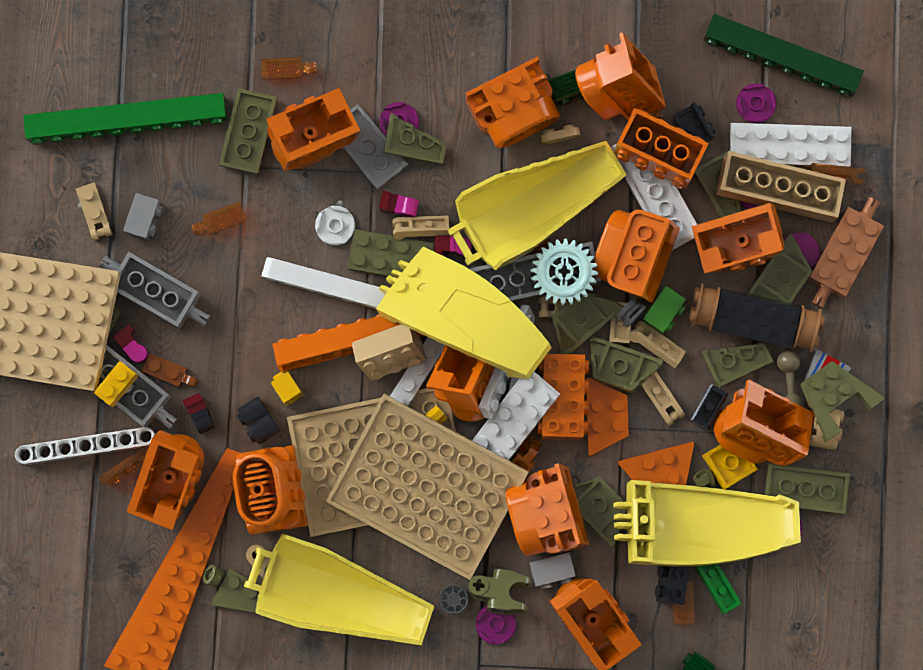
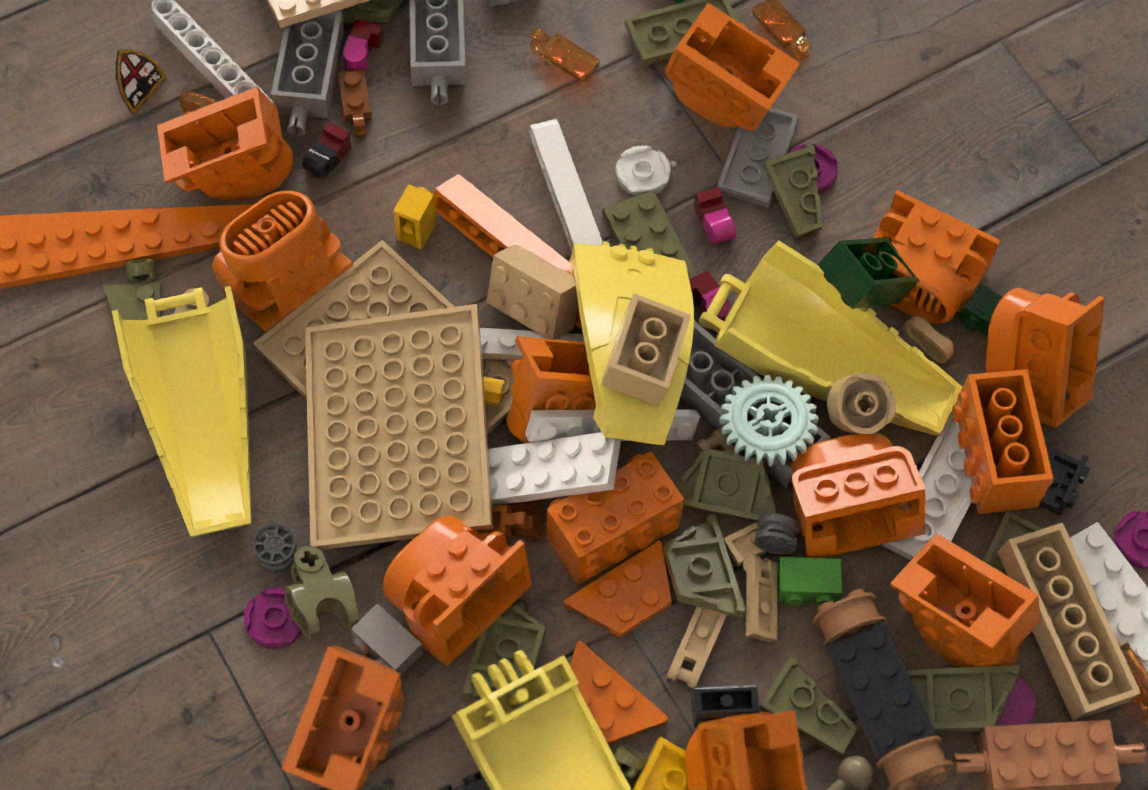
camera: 50 degrees right, 20 degrees down
(68, 502) = (136, 77): none -> shield
(116, 384) = (301, 36): yellow brick -> none
(258, 421) = (358, 214): black brick -> none
(420, 226) = (705, 250): tan plate -> none
(495, 323) = (646, 350): none -> tan brick
(516, 156) = (866, 278): none -> dark green brick
(590, 214) = (877, 399): none -> tan brick

